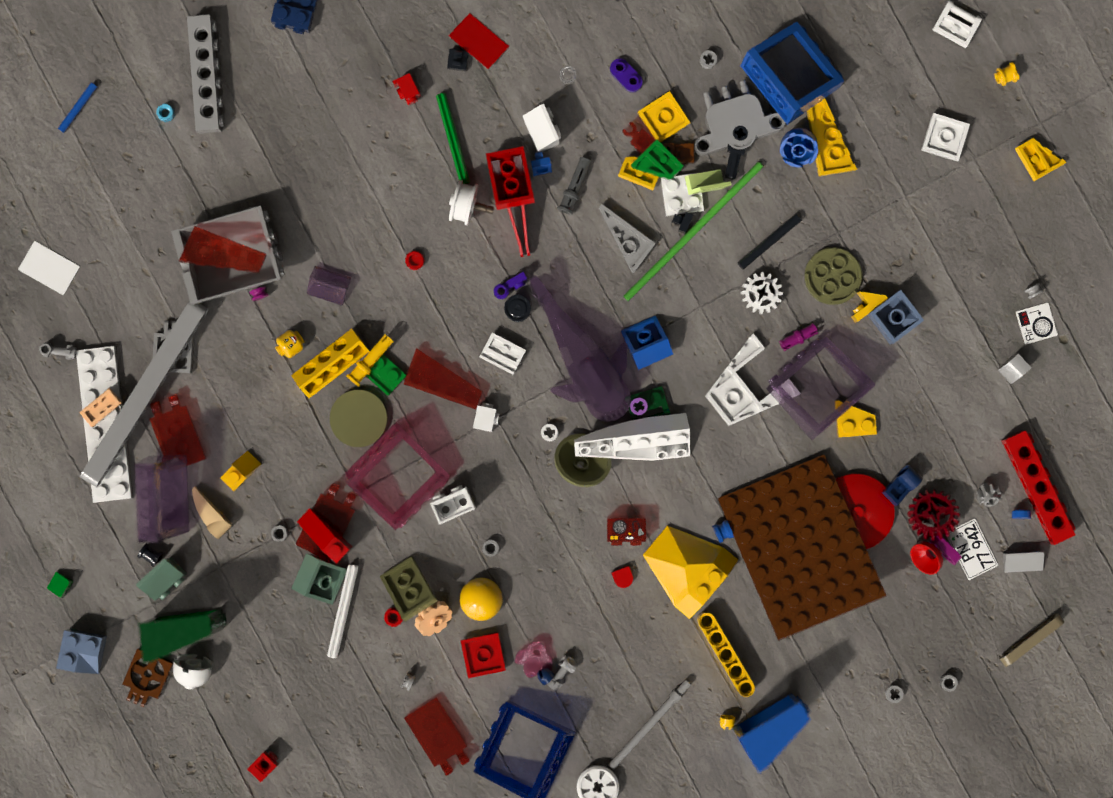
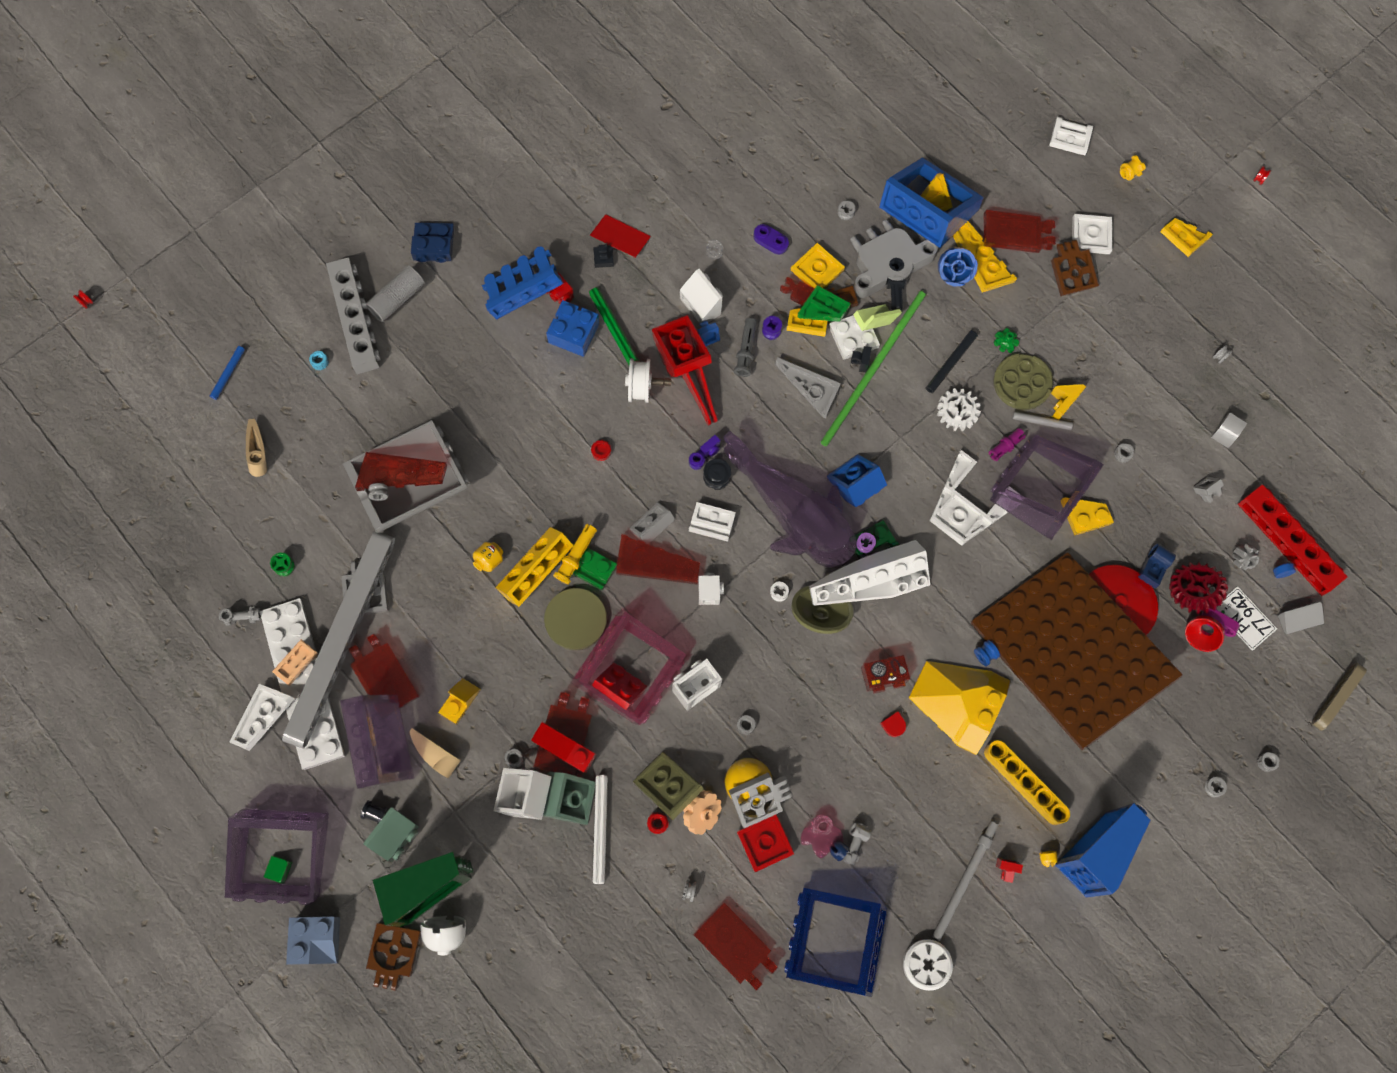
camera: 15 degrees left, 15 degrees down
(48, 268) = (219, 535): white sticker -> none
(63, 447) = (259, 716): none -> white wing
(65, 545) = (273, 819): none -> clear purple windscreen
(93, 192) = (255, 450): none -> tan piece
(98, 310) = (278, 561): none -> green wheel
(199, 269) = (378, 491): none -> light grey bush
(251, 59) = (399, 291): none -> light grey piece
(258, 293) = (445, 513): magenta bush -> none
(258, 770) = (537, 1031): red brick -> none
(280, 568) = (522, 793): none -> white piece
(328, 285) = (517, 492): clear purple panel -> none
(372, 86) = (525, 291): none -> blue fence
(384, 490) = (619, 685): none -> red plate
(412, 132) = (572, 328): none -> blue piece
(447, 342) = (652, 523): none -> light grey slope
(503, 616) = (778, 793): none -> light grey piece
(602, 173) = (770, 332): none -> dark purple wheel
(689, 722) = (1008, 869): none -> red tile
(797, 68) = (938, 193): none -> yellow wing
(826, 233) = (1006, 340): none -> green plant
(839, 319) = (1042, 420): none -> light grey bar
(870, 119) = (1017, 231): none -> clear red tile
(895, 317) = (1098, 403): sand blue slope -> none
(902, 370) = (1128, 448): none -> light grey axle
(915, 156) = (1071, 255): none -> reddish brown piece
(976, 420) = (1208, 487): none -> light grey tile
(1036, 323) = (1234, 386): white sticker -> none

